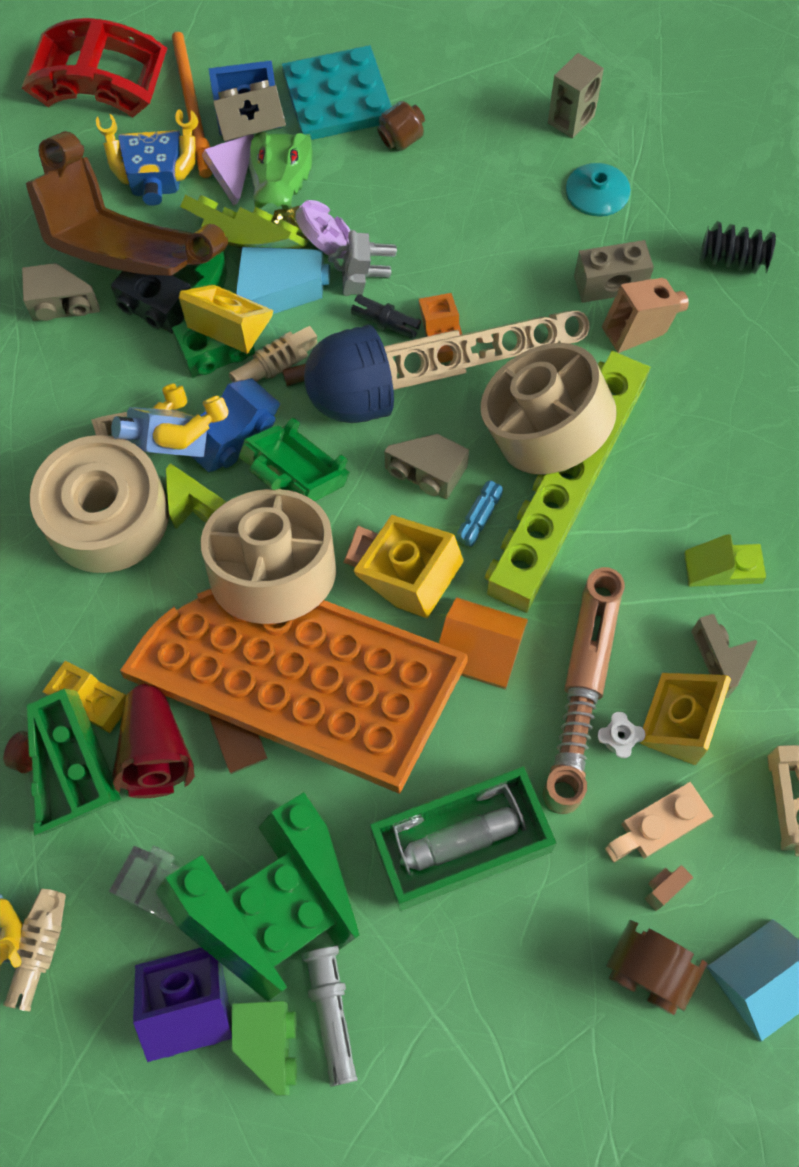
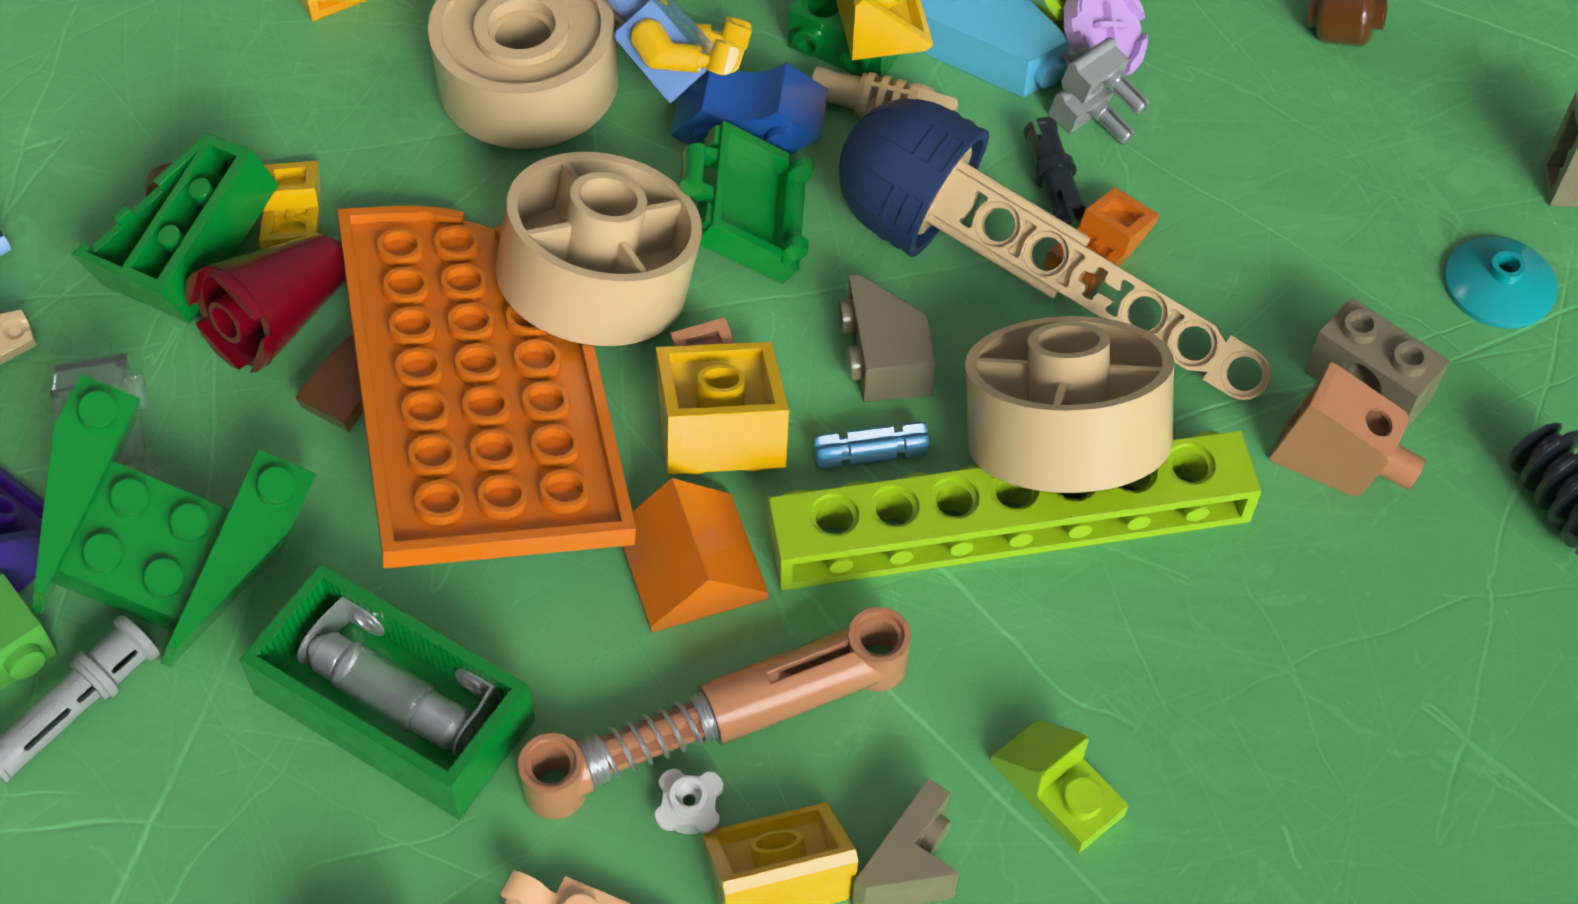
camera: 50 degrees right, 10 degrees down
(189, 496) = (611, 125): lime slope -> none

